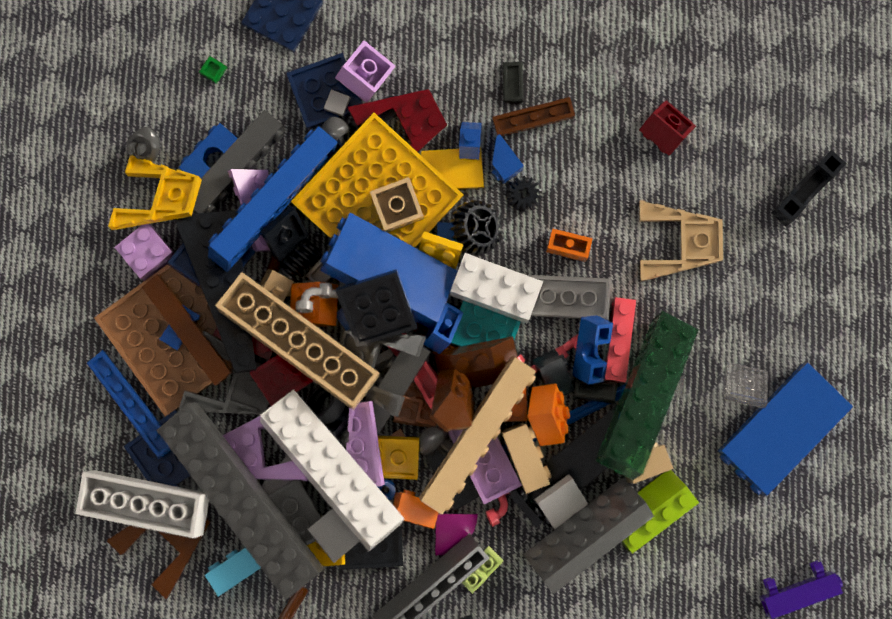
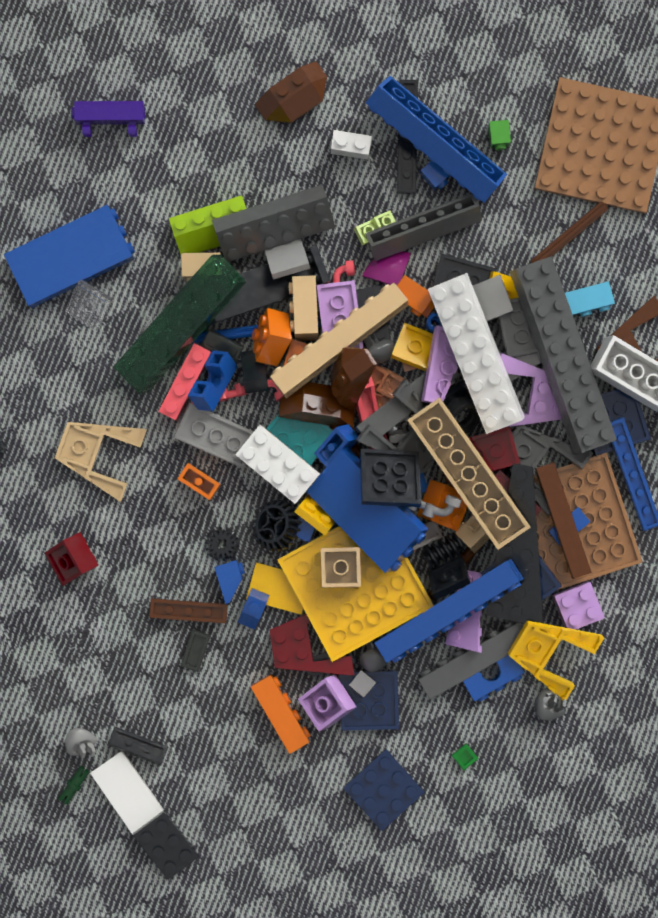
camera: 155 degrees left, 5 degrees up
(407, 49) = (280, 713): none -> orange brick

